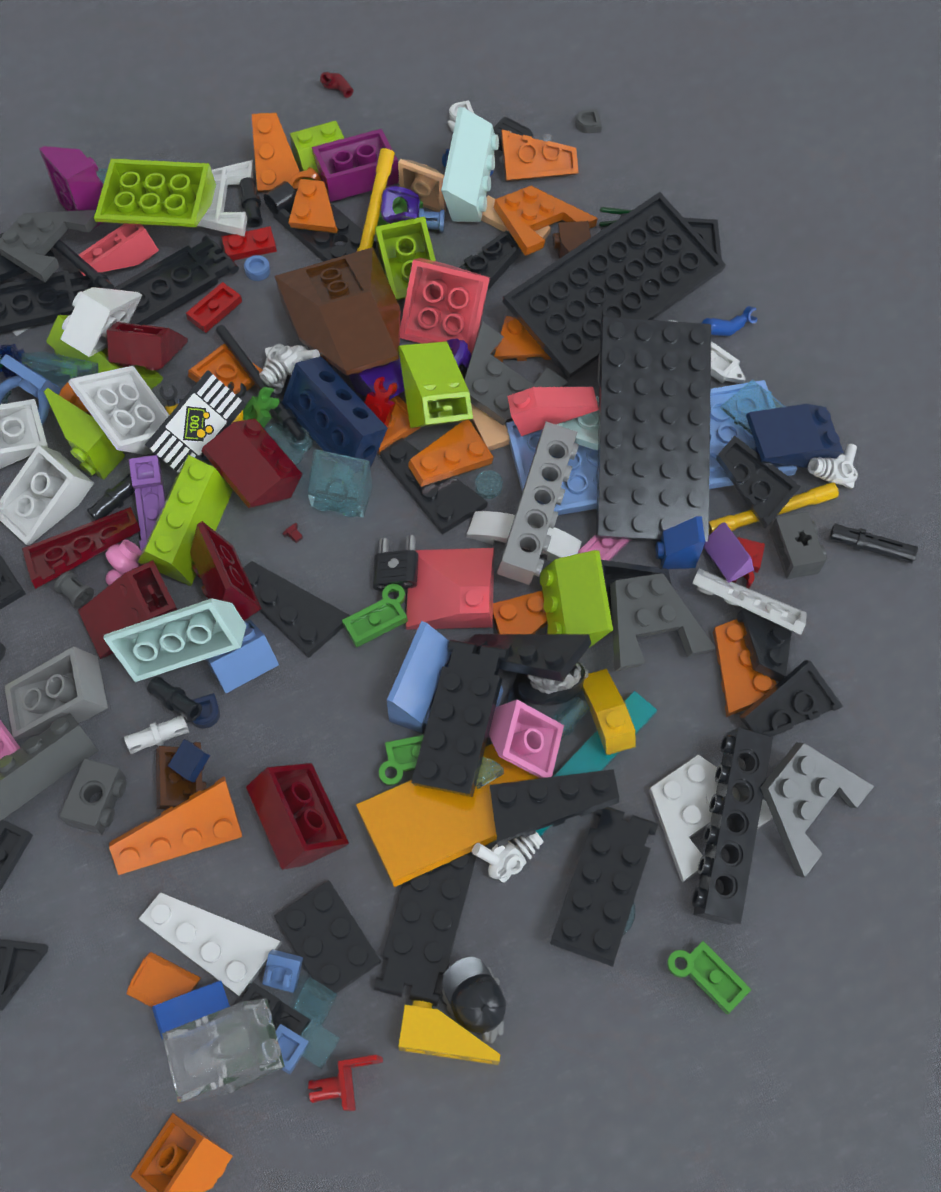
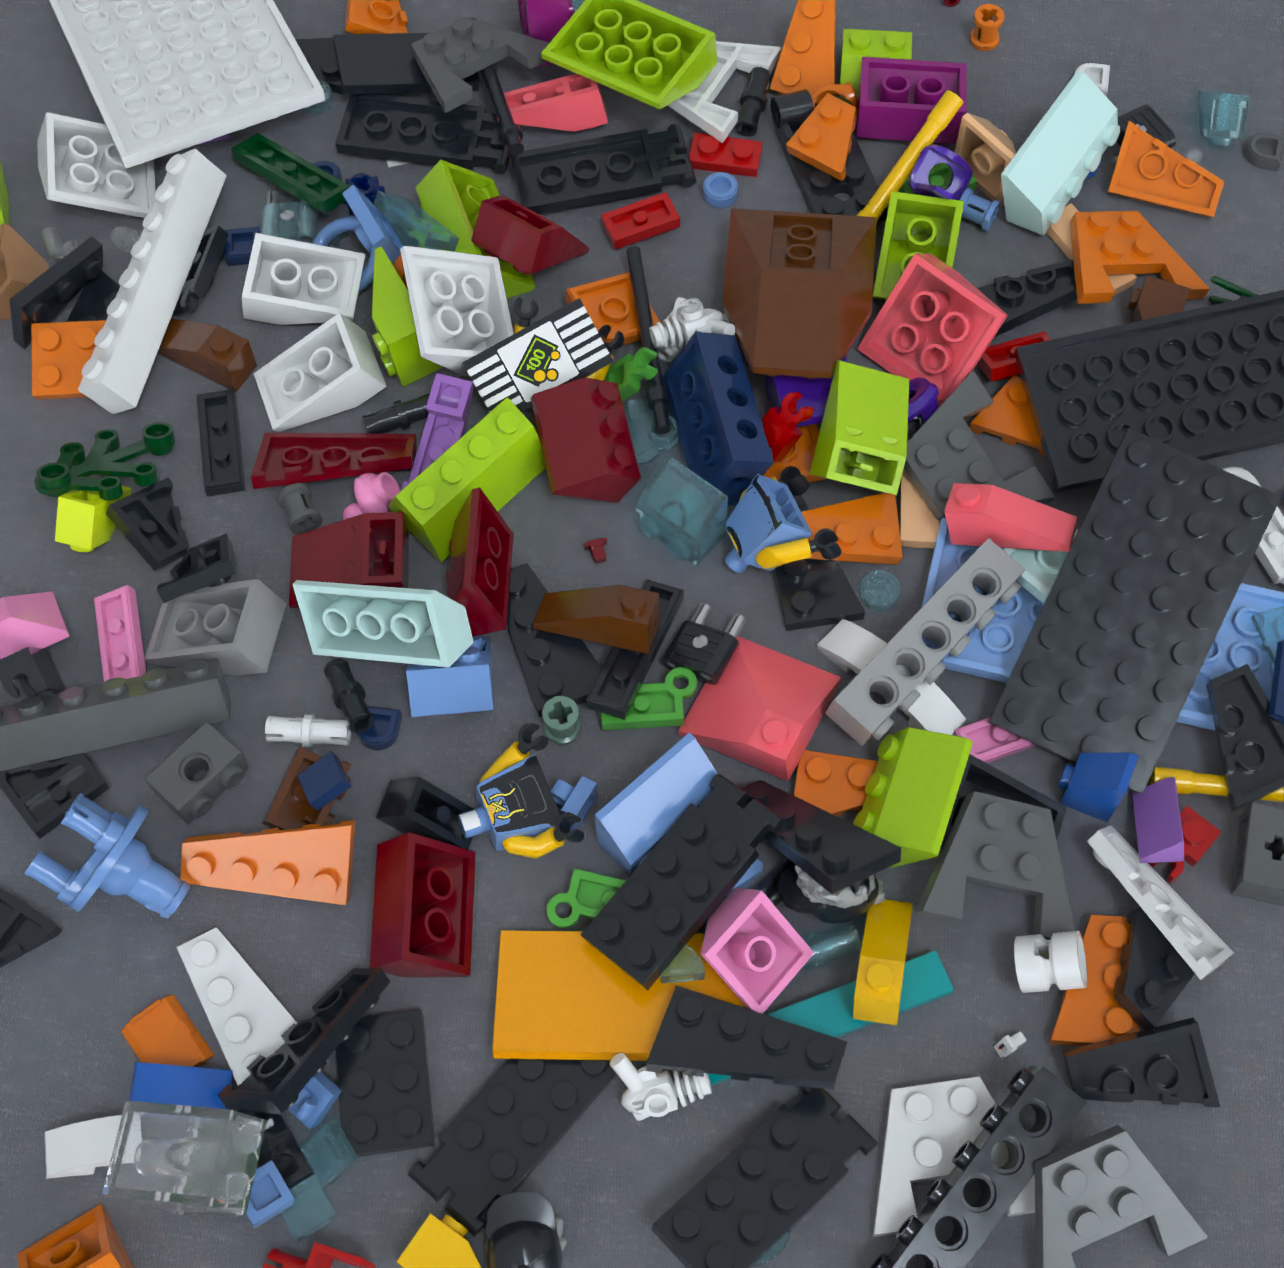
camera: 30 degrees right, 0 degrees up
(24, 657) = (202, 565): none -> black wing
(67, 882) = (115, 865): none -> medium blue piece
(94, 314) = (480, 173): white slope -> none
(142, 1080) = (80, 1147): none -> white slope
(266, 749) = (423, 810): none -> black slope
(267, 939) = (307, 1045): none -> black wing
(324, 571) = (603, 615): none -> reddish brown slope
(326, 660) = (563, 708): none -> sand green bush
(327, 718) = (518, 803): none -> torso
(353, 586) = (626, 669): none -> black tile
(361, 700) = (577, 799): none -> medium blue tile
(380, 102) = (986, 27): none -> orange bush
(404, 471) = (771, 528): none -> medium blue torso
(494, 308) = (999, 360): none -> red plate
(553, 107) = (1222, 115): none -> clear light blue slope
(705, 727) = (1008, 1044): none -> white piece
(707, 665) = (1050, 962): none -> white wheel

